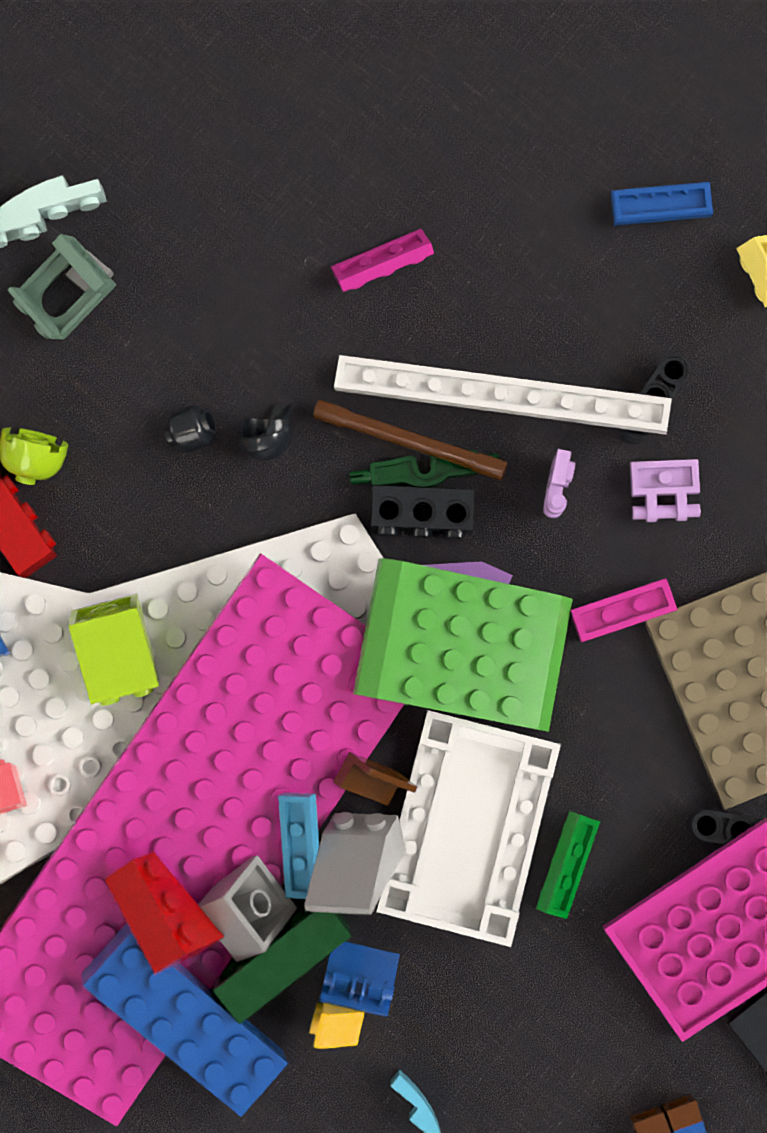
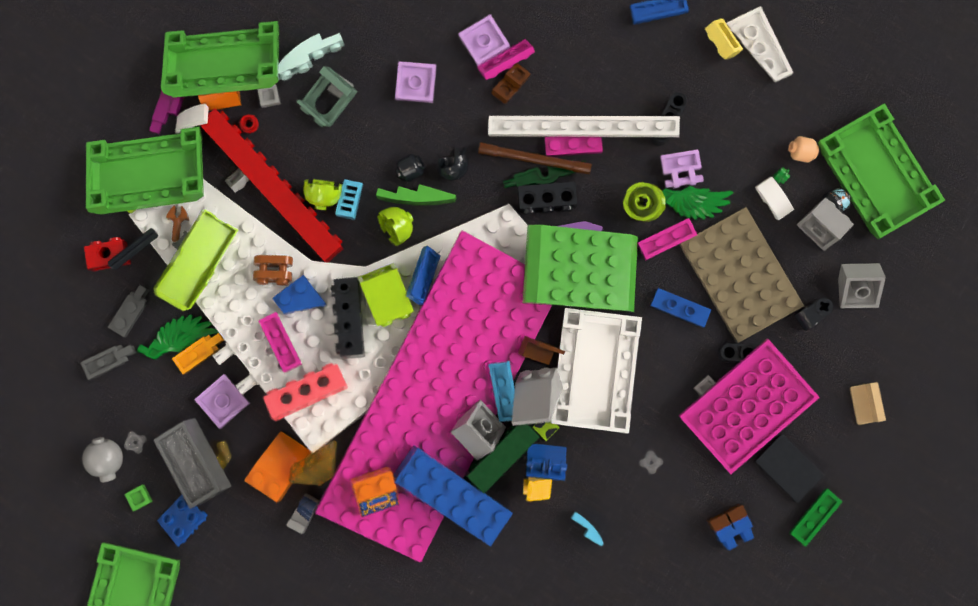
camera: 10 degrees left, 0 degrees up
(44, 683) = (349, 318): none -> black brick
(47, 995) = (375, 491): none -> orange slope
(79, 499) = (347, 214): none -> medium azure slope
(153, 525) = (396, 223): none -> lime cylinder
(161, 912) = (432, 436): red wedge -> none
(184, 624) = (423, 275): none -> blue plate
(206, 482) = (423, 196): none -> bright green slope
(220, 280) = (415, 82): none -> lavender plate
(349, 222) = (484, 40): none -> lavender plate
(369, 924) = (546, 429): none -> lime tile
(386, 303) = (511, 83): none -> reddish brown slope
(479, 425) = (572, 146): none -> dark pink plate
(546, 1011) = (651, 467): none -> clear plate
(559, 477) = (621, 169): lavender plate -> none
(567, 865) = (654, 384): green plate -> none
(576, 529) = (634, 198): none -> lime brick
(632, 734) = (680, 307): none -> blue plate
(656, 877) = (704, 385): none -> light grey plate
(678, 549) = (696, 202): none -> green animal

